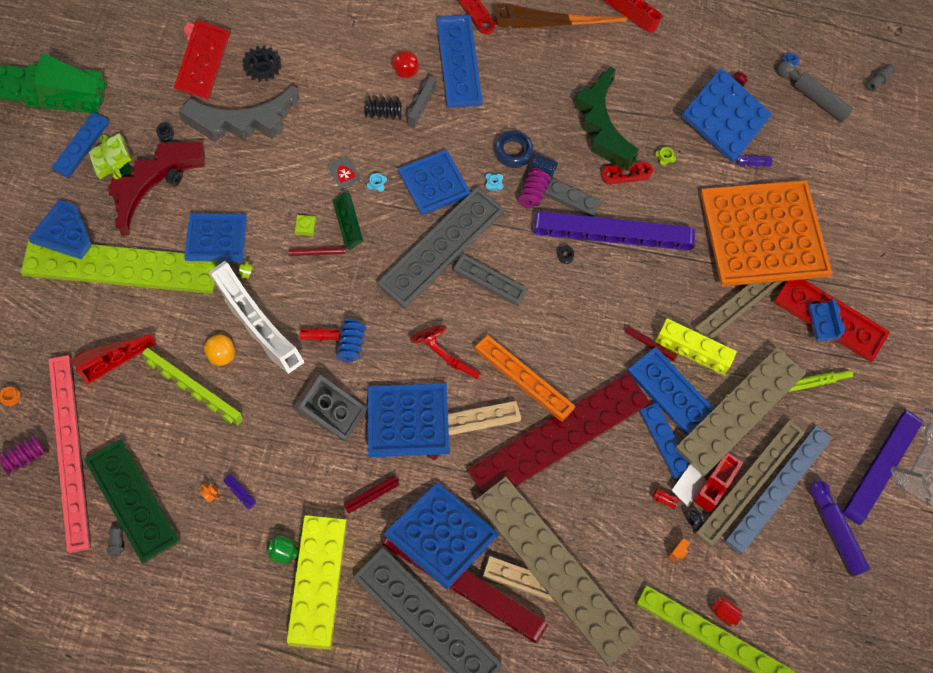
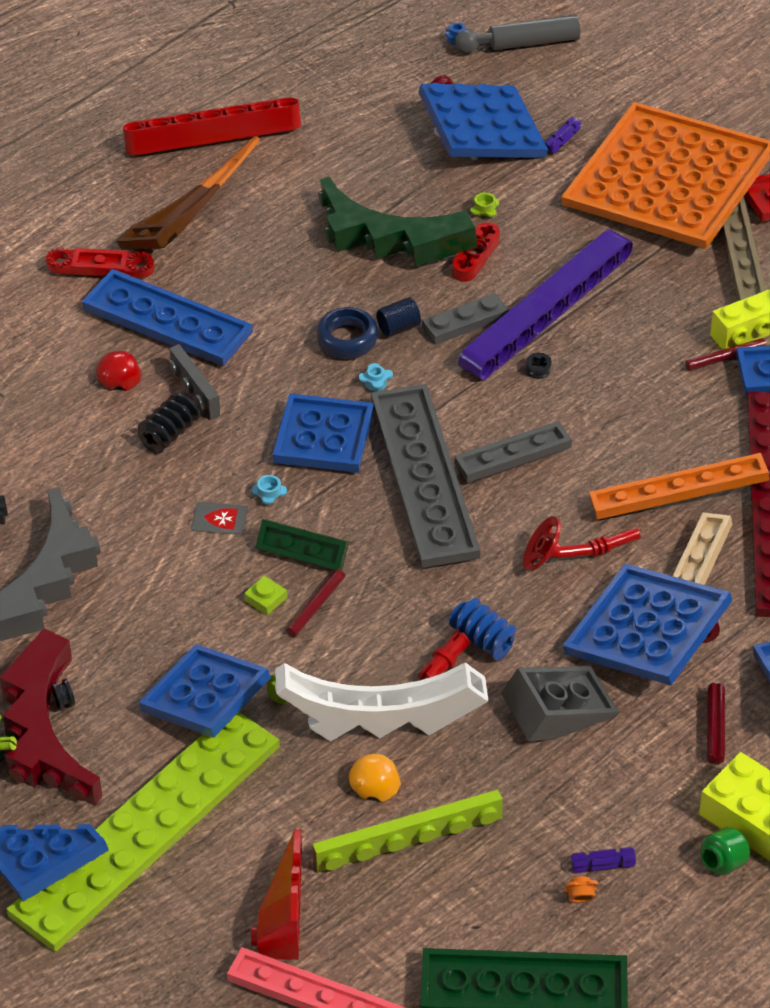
camera: 45 degrees left, 20 degrees down
(534, 188) = (423, 341): magenta piece -> none

